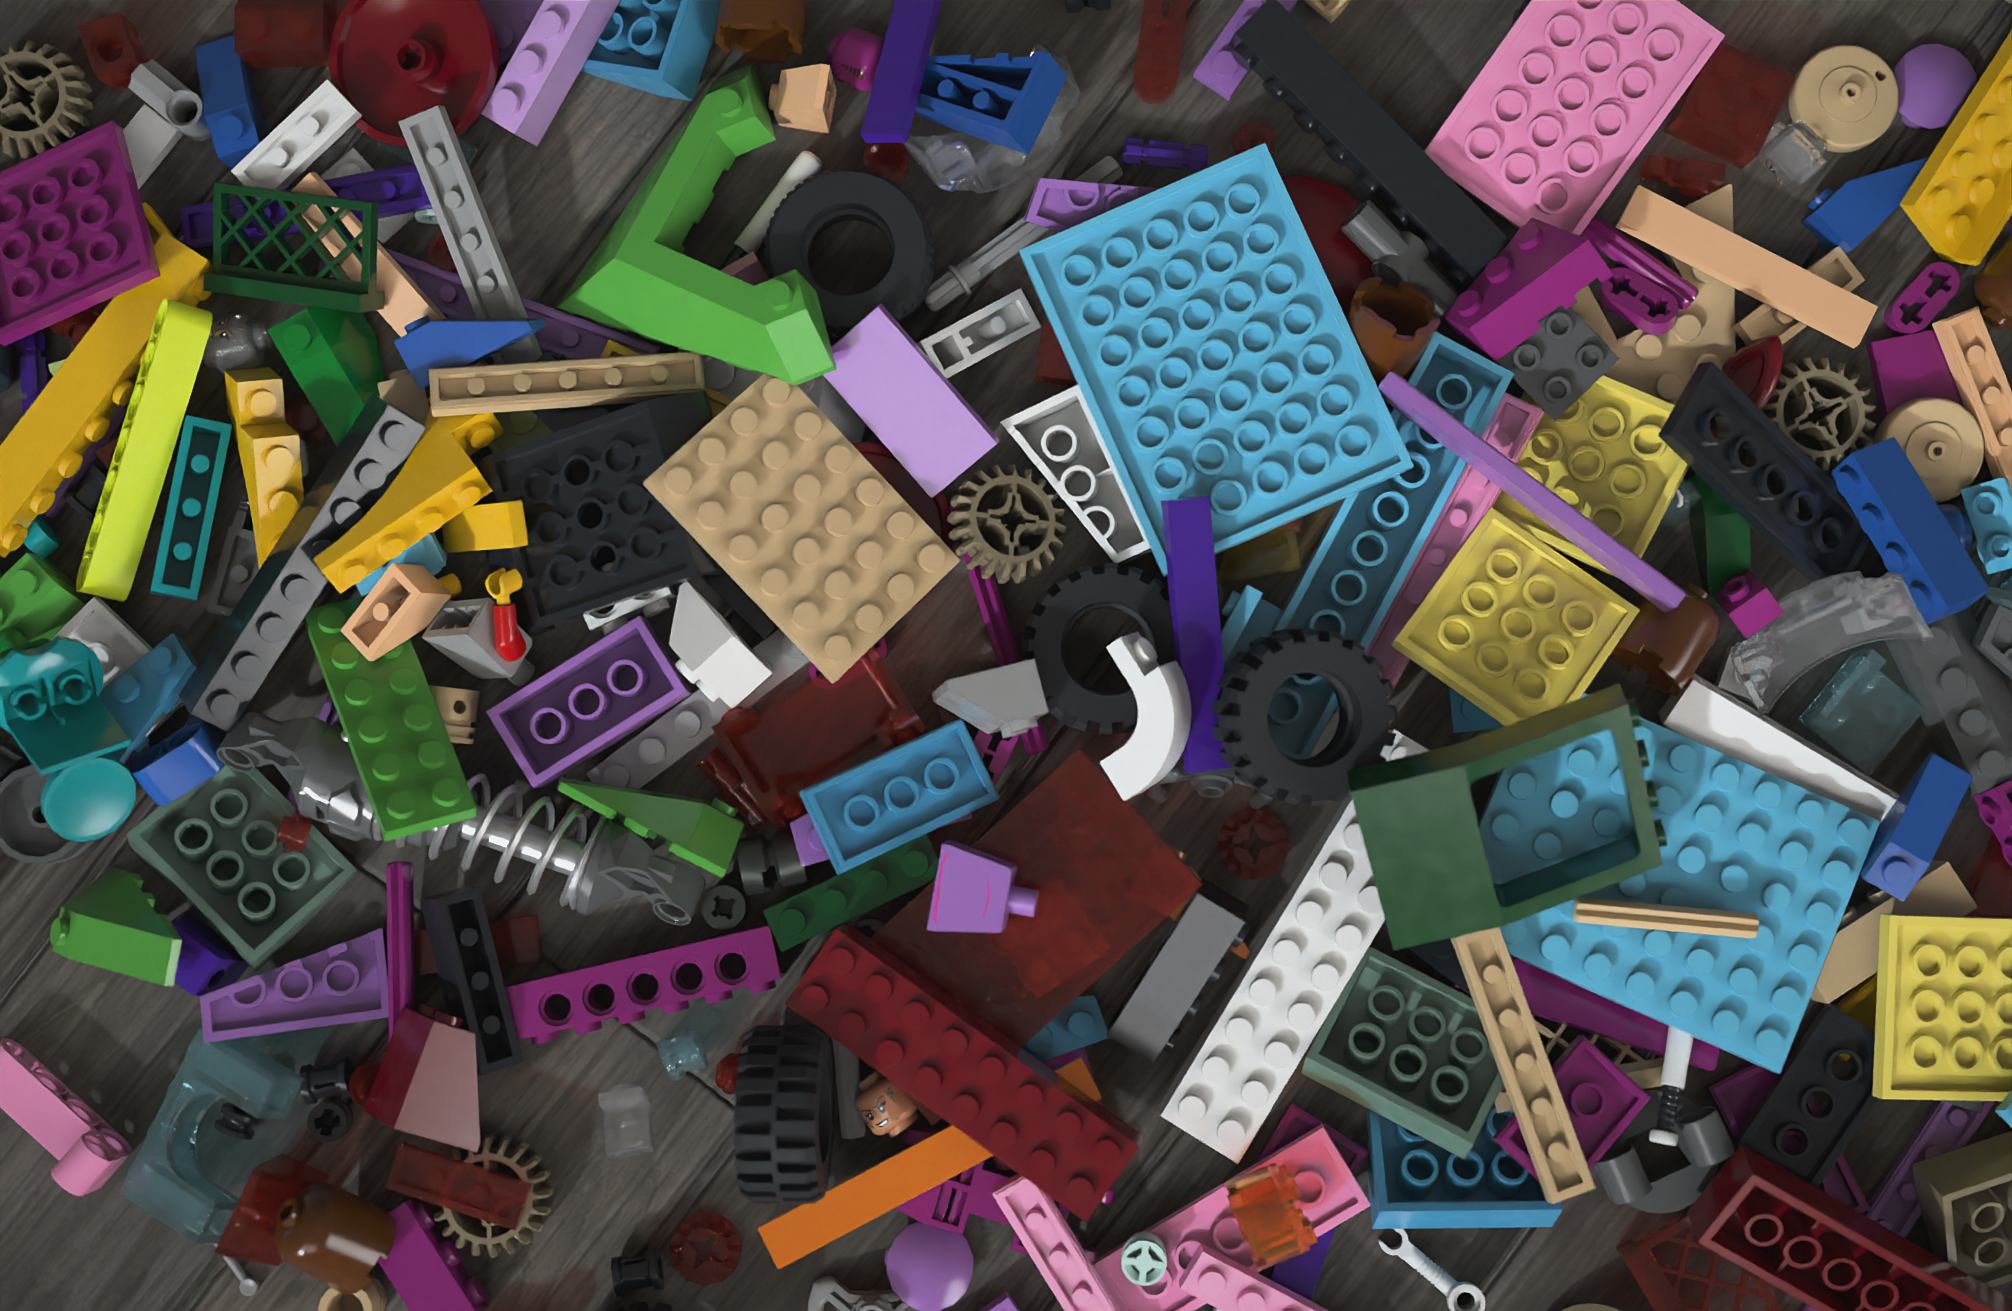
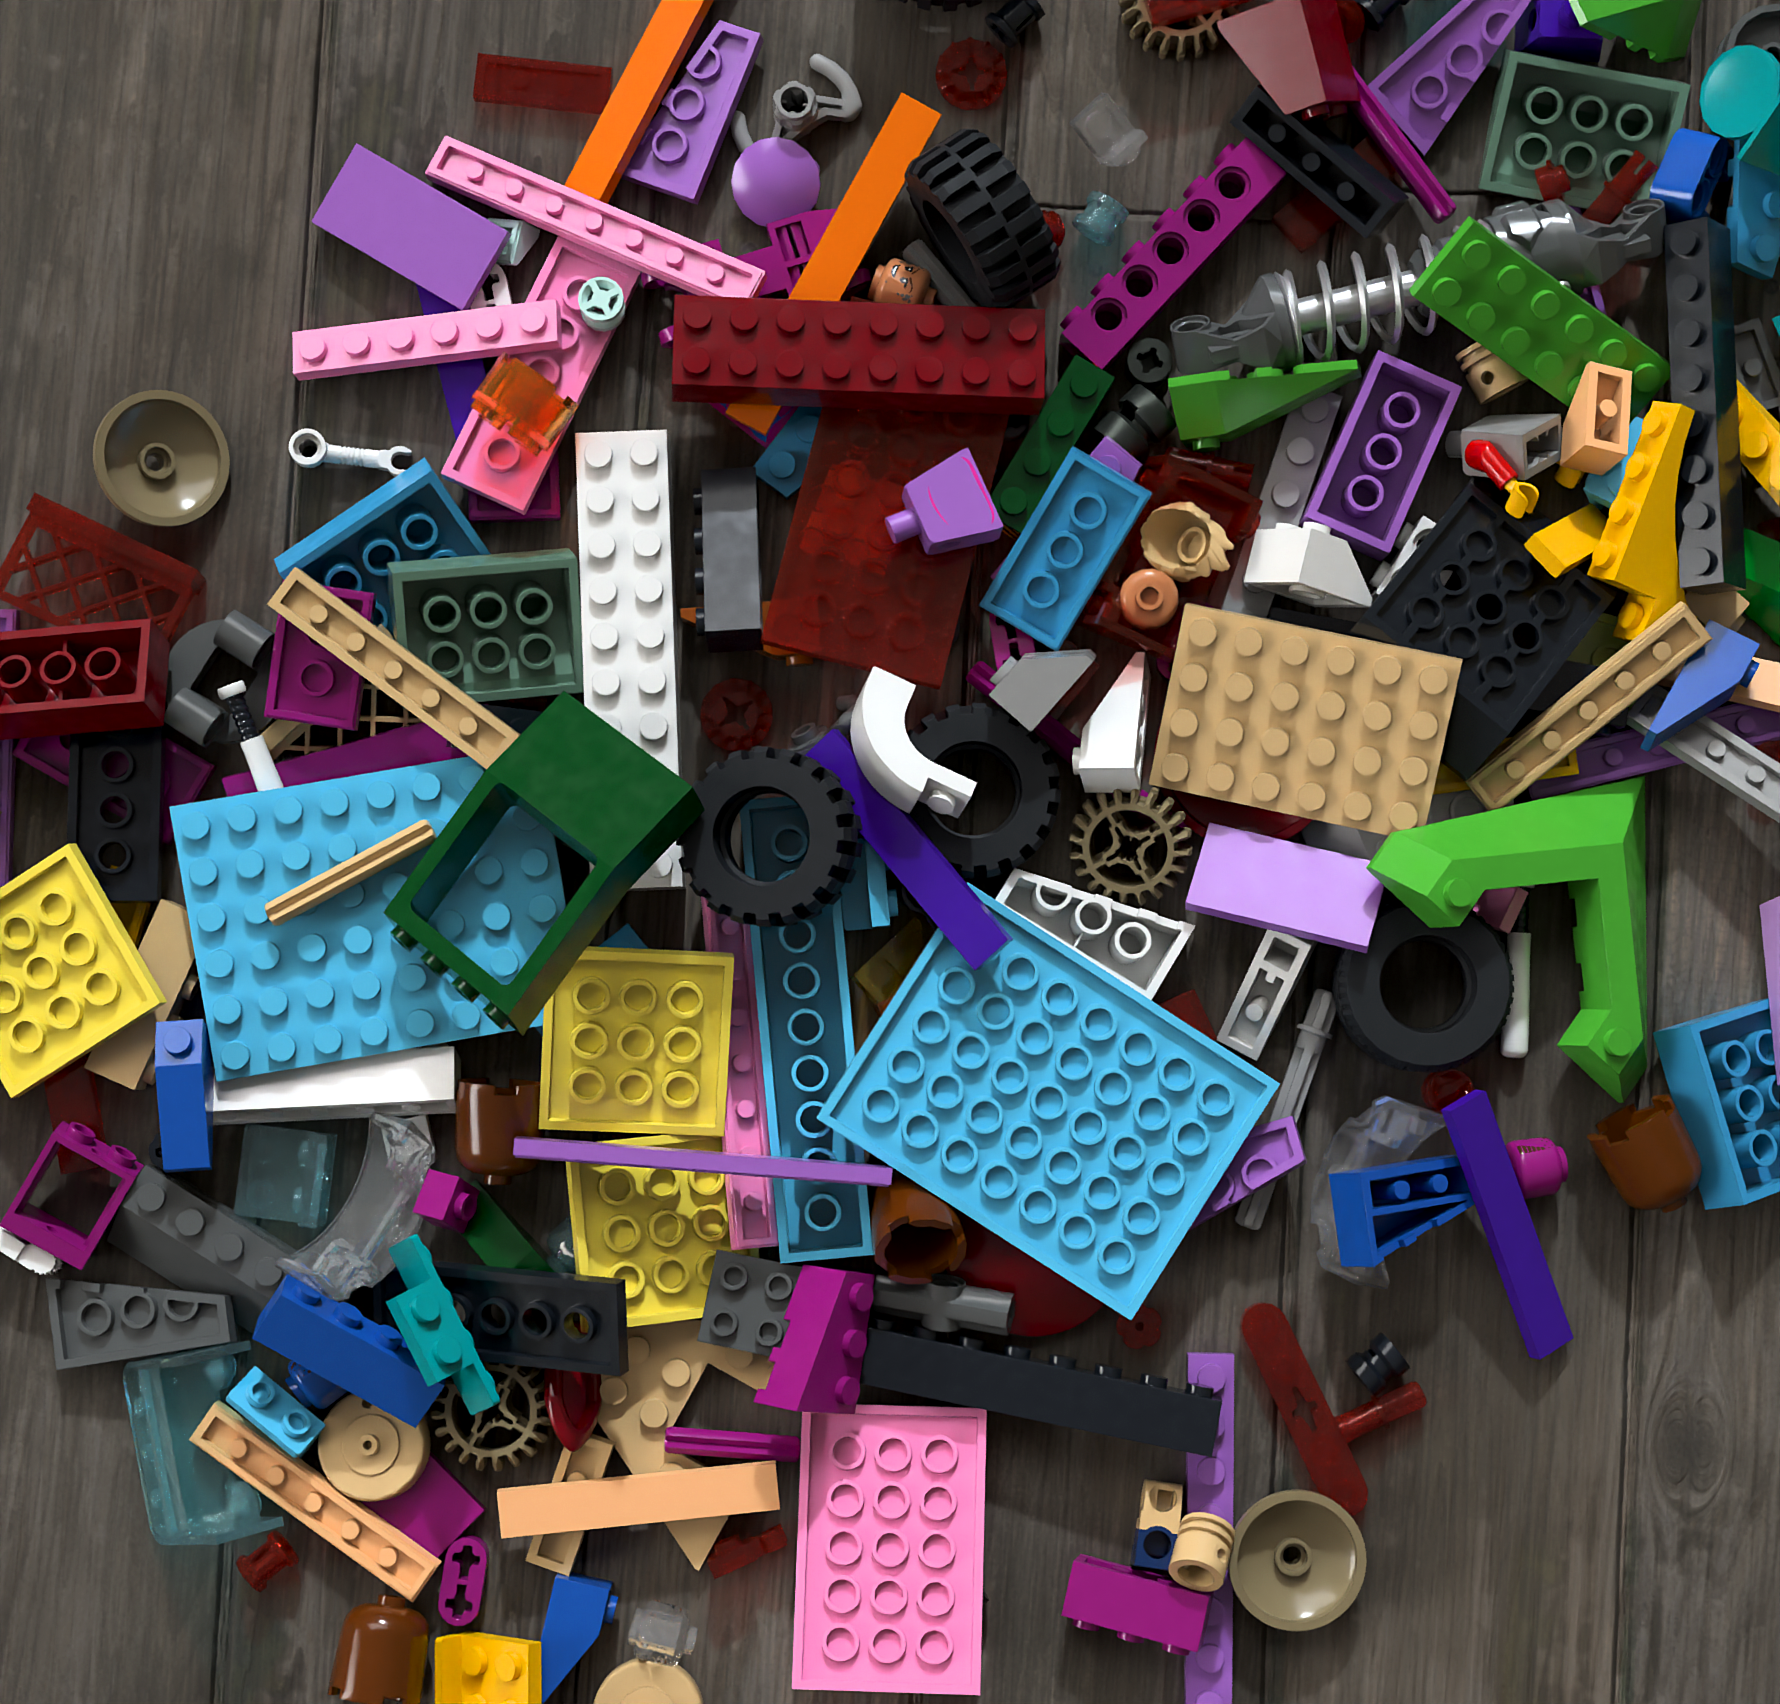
camera: 145 degrees right, 0 degrees up
(245, 788) = (1620, 190): none -> clear red axle
(799, 736) = (1184, 542): none -> tan hair
(804, 98) = (1556, 1098): light nougat slope -> none
(859, 709) = (1149, 599): none -> nougat head
(959, 618) = (1116, 734): none -> white slope
(1165, 154) = (1210, 1264): dark purple axle -> none
(1641, 298) = (711, 1418): magenta beam -> none
(1730, 106) = (745, 1639): clear red brick -> none
(1834, 502) = (435, 1330): none -> teal bracket

